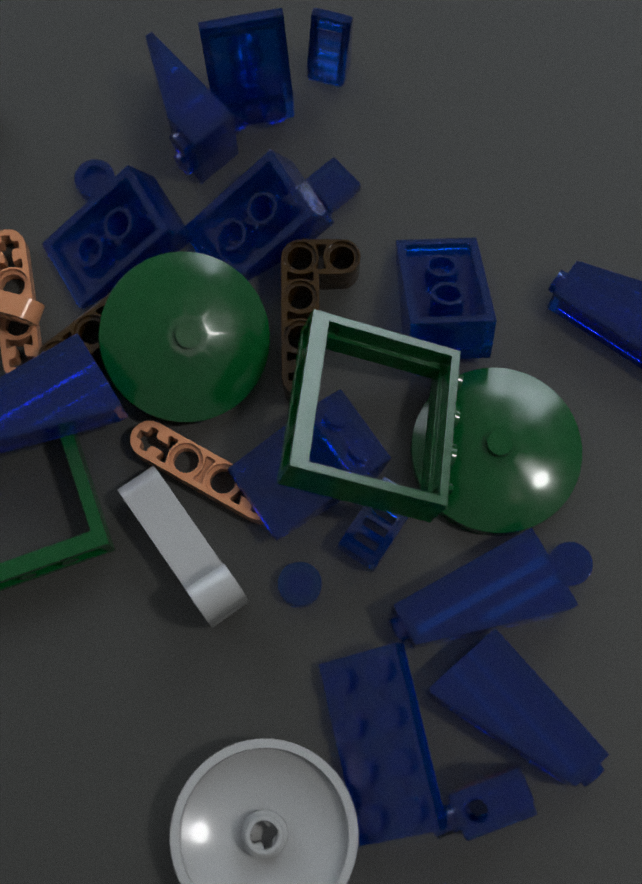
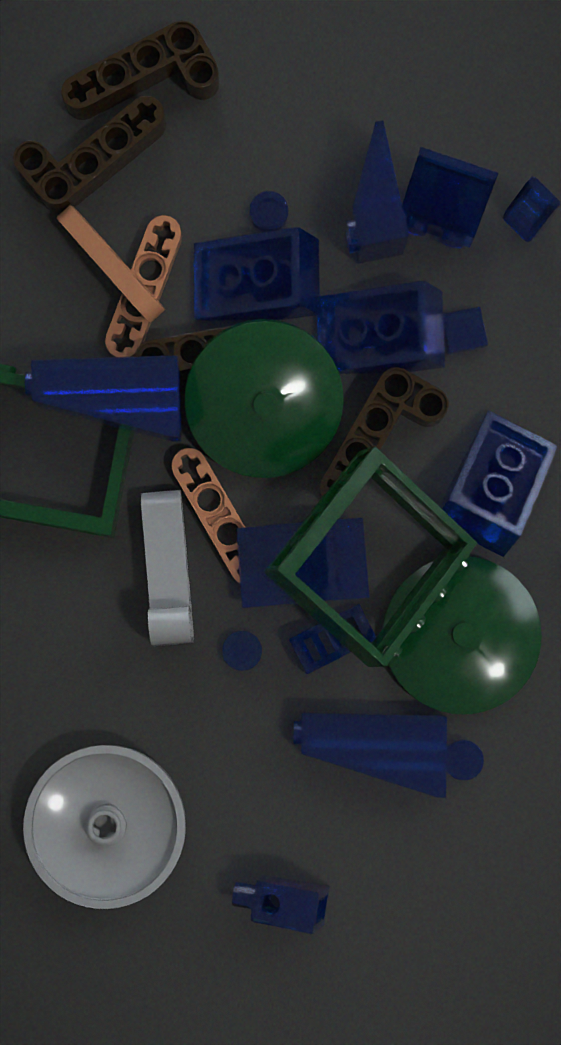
camera: 30 degrees right, 10 degrees up
(383, 745) = (232, 812): clear blue plate -> none
(514, 706) = (349, 840): clear blue slope -> none

